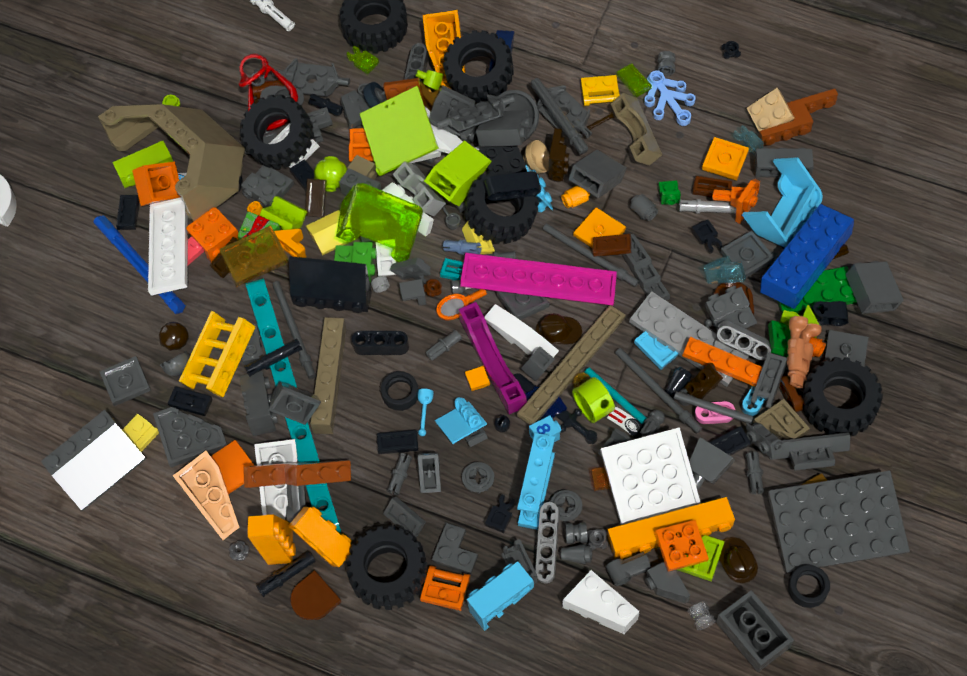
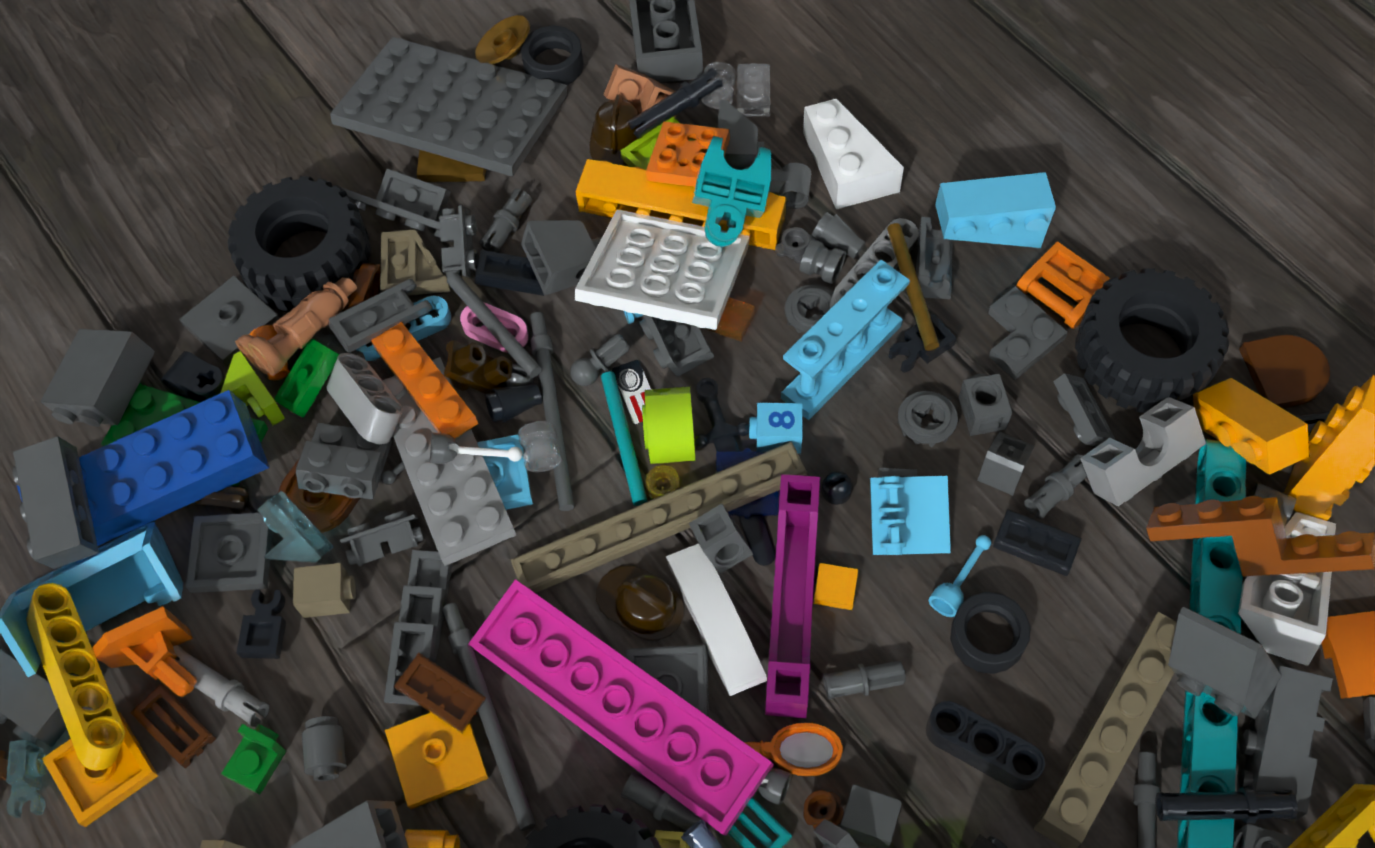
camera: 150 degrees left, 0 degrees up
(372, 491) = (1168, 438): none -> light grey arch
(450, 488) = (982, 417): none -> dark grey brick
(520, 535) = (913, 289): none -> pearl gold bar
(640, 523) = (731, 192): none -> teal piece
(646, 362) = (539, 445): none -> clear wheel
(680, 625) = (753, 89): none -> clear bracket
(684, 331) = (445, 449): none -> hinge
(693, 290) = (367, 541): none -> dark grey hinge
(694, 259) = (323, 590): none -> dark tan brick
(708, 584) = (686, 96): none -> black pin
(728, 584) = (636, 88): none -> nougat slope
(750, 168) = (72, 691): none -> yellow beam
(824, 214) = (54, 503): none -> dark grey brick
(844, 579) = (503, 40): none -> pearl gold dish

